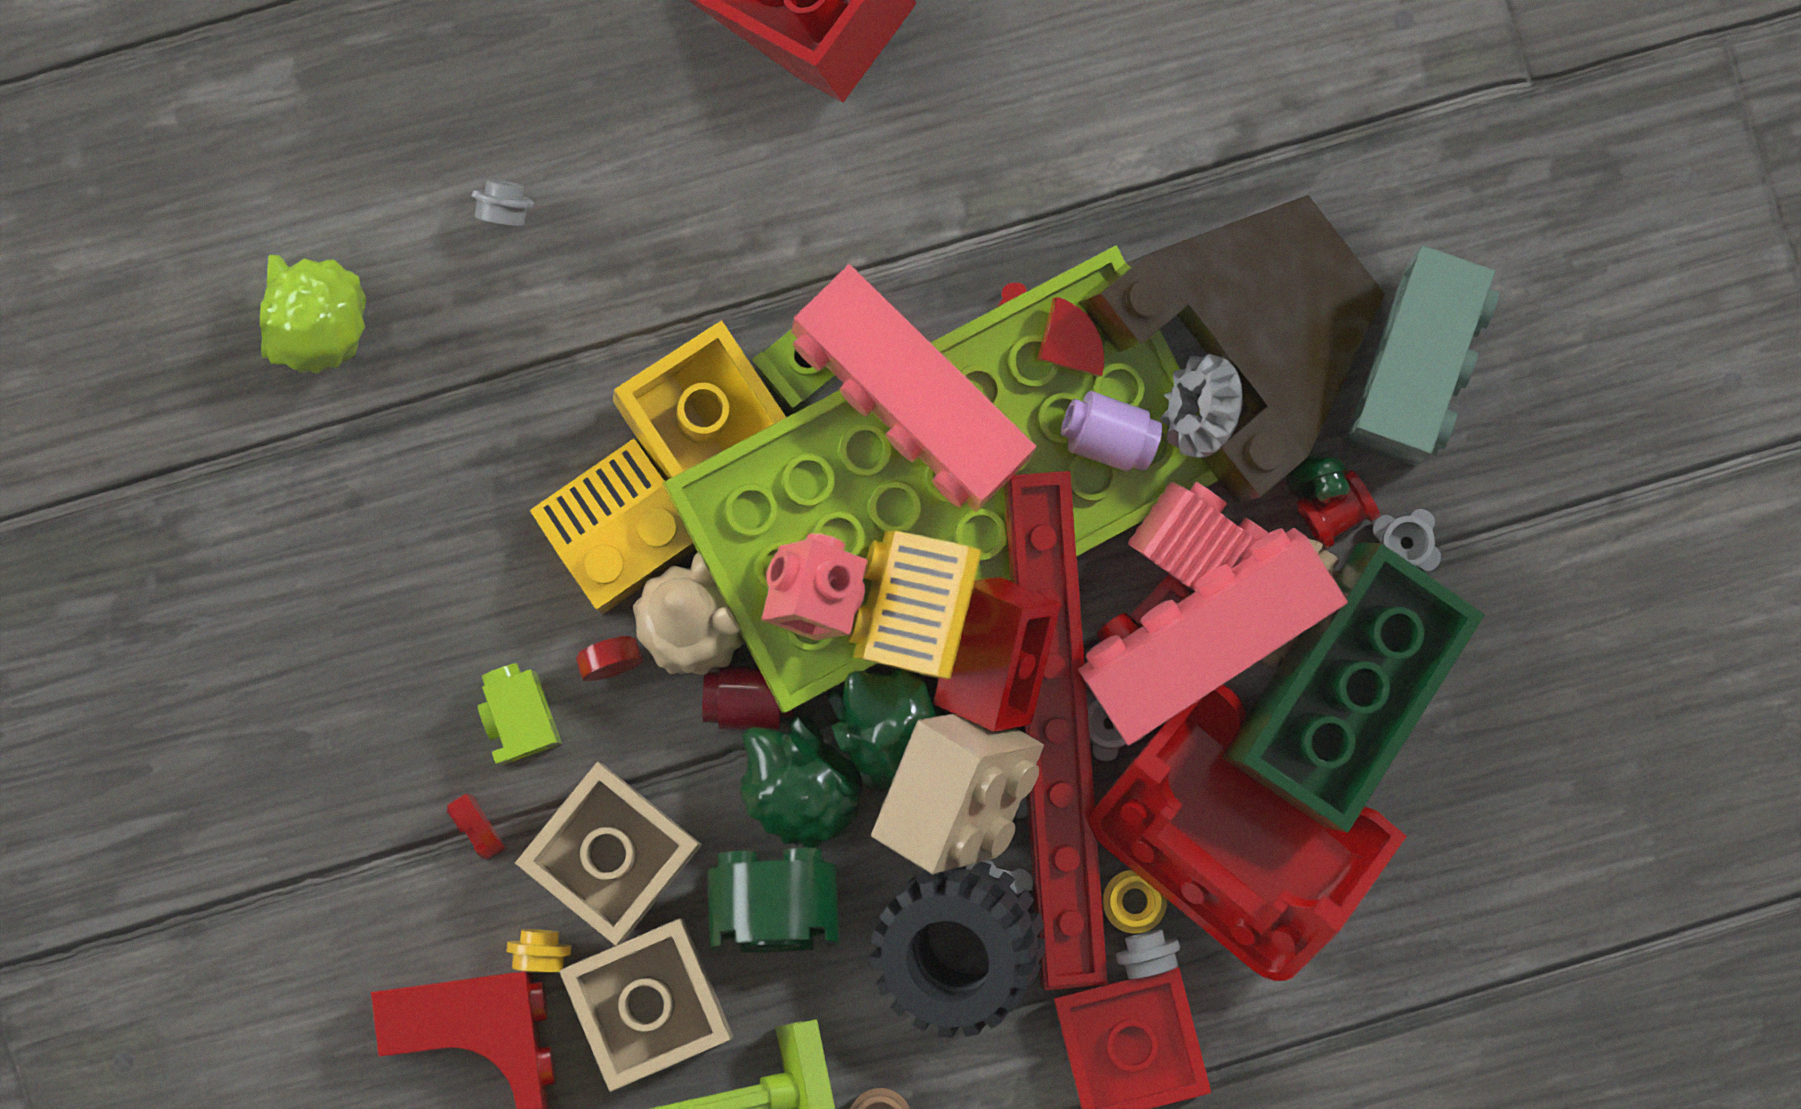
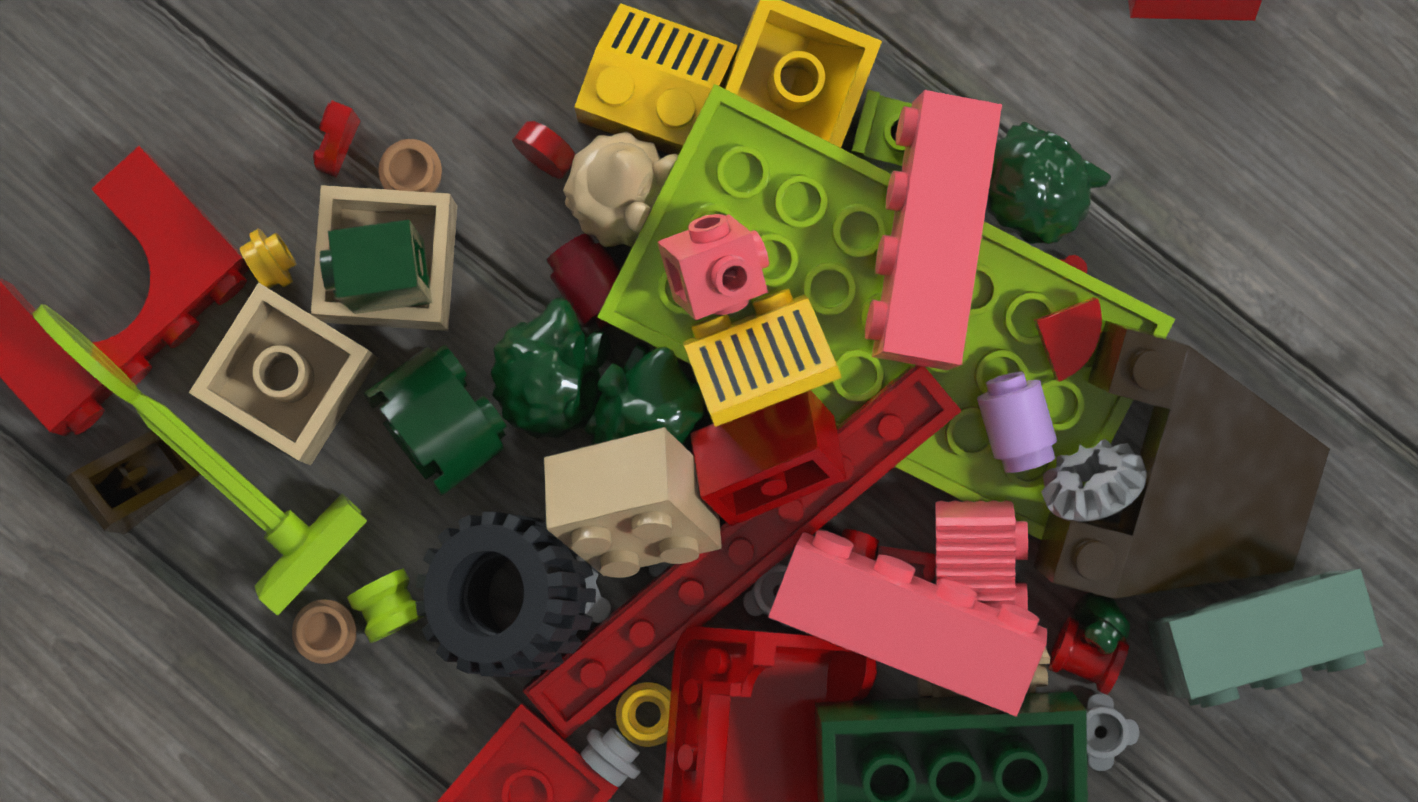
camera: 50 degrees right, 0 degrees up
(517, 714) = (447, 107): lime brick -> none
(545, 781) = (410, 167): none -> medium nougat plate
(623, 862) = (376, 267): none -> dark green brick
(895, 1053) = (385, 605): none -> lime wheel
(930, 275) = (1040, 184): none -> dark green animal

